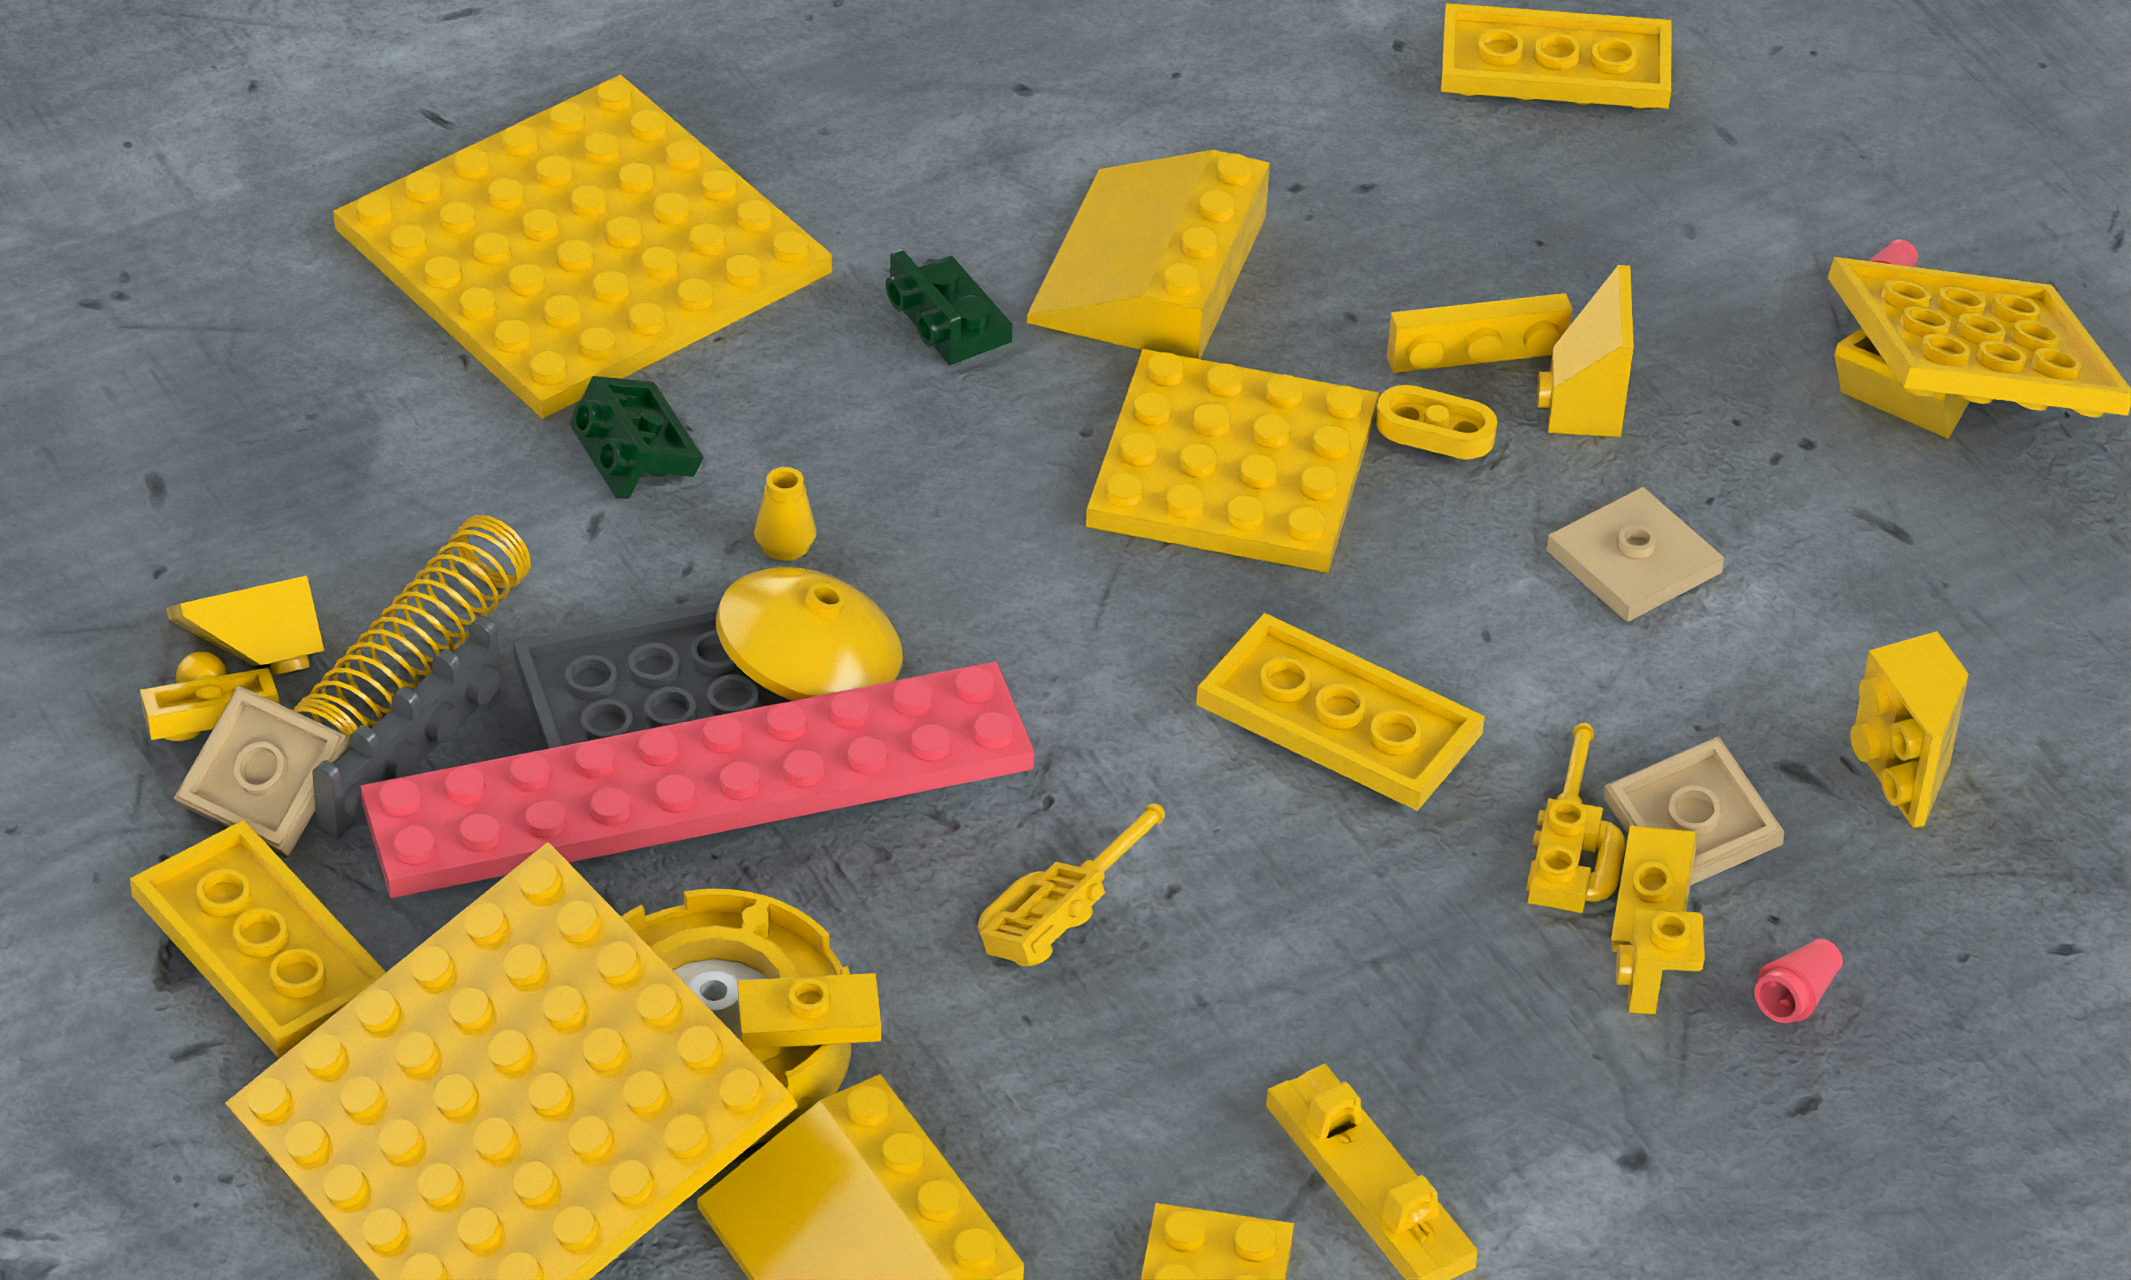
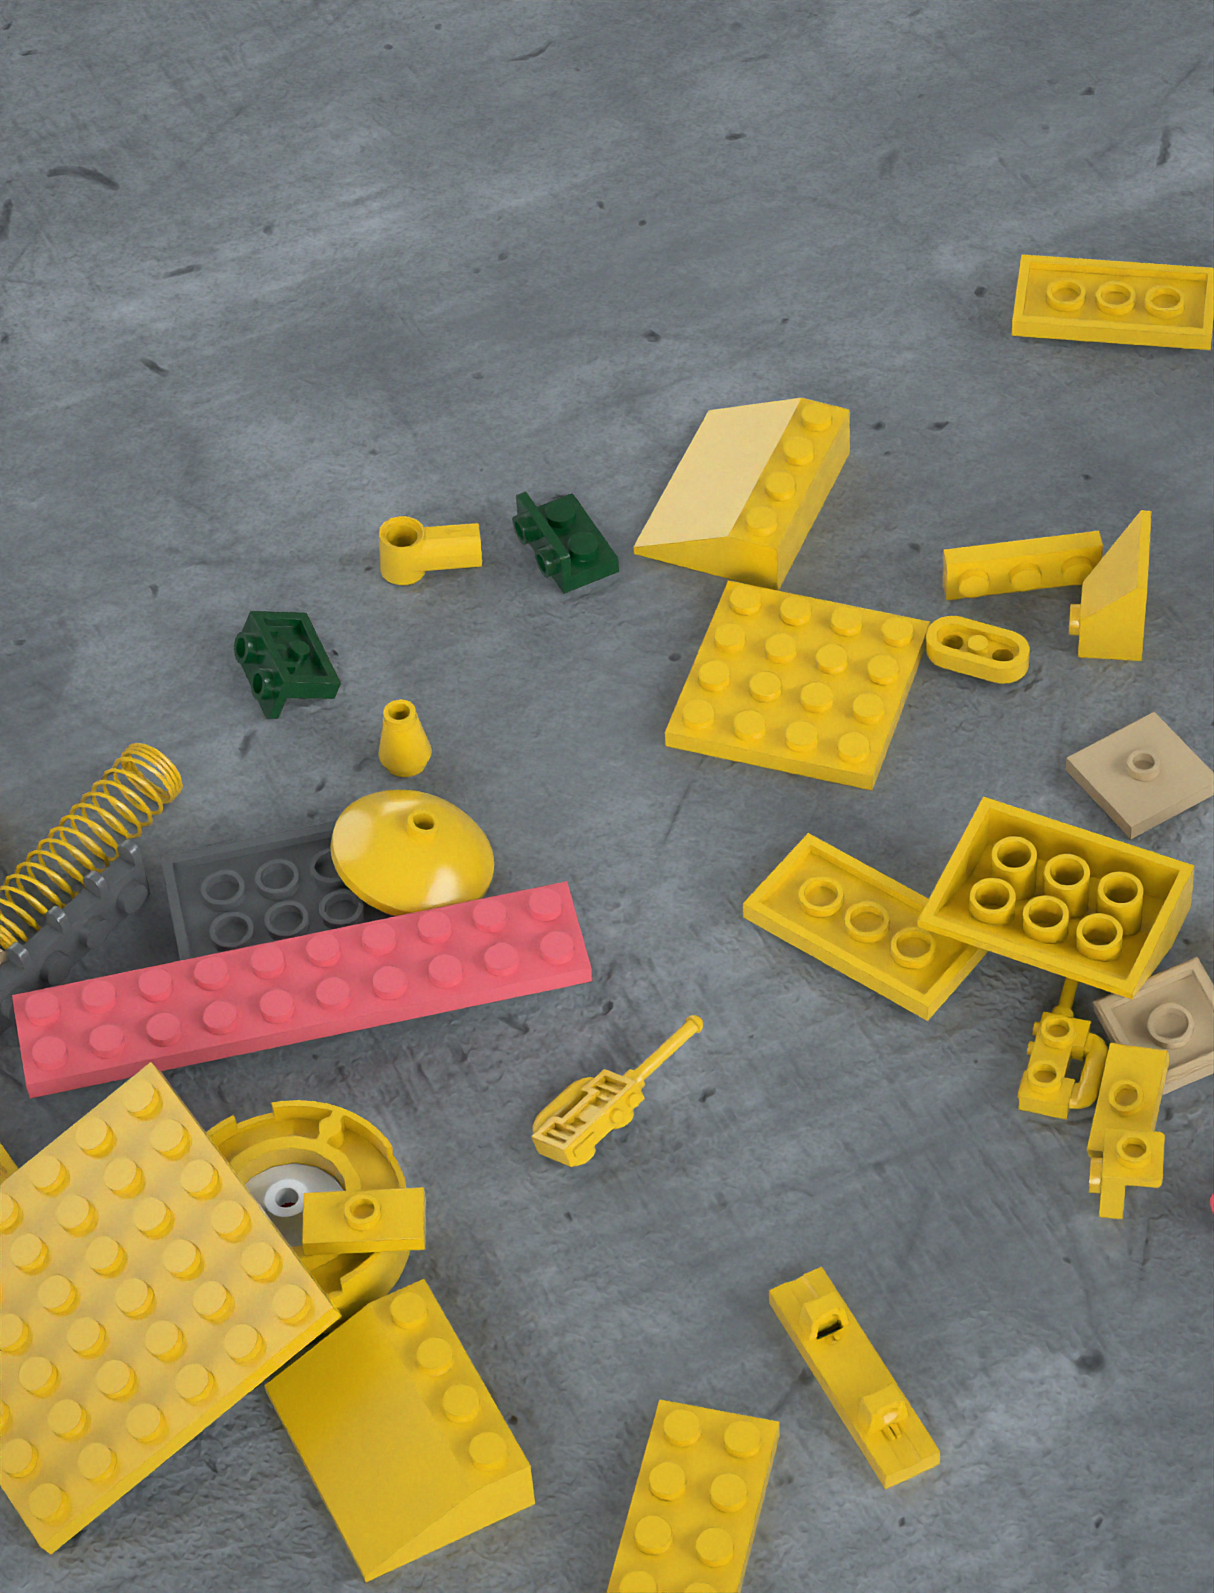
camera: 10 degrees right, 5 degrees up
(582, 244) = (260, 482): yellow plate -> none
(772, 312) = (411, 549): none -> yellow piece
(1561, 673) = (1060, 898): none -> yellow slope

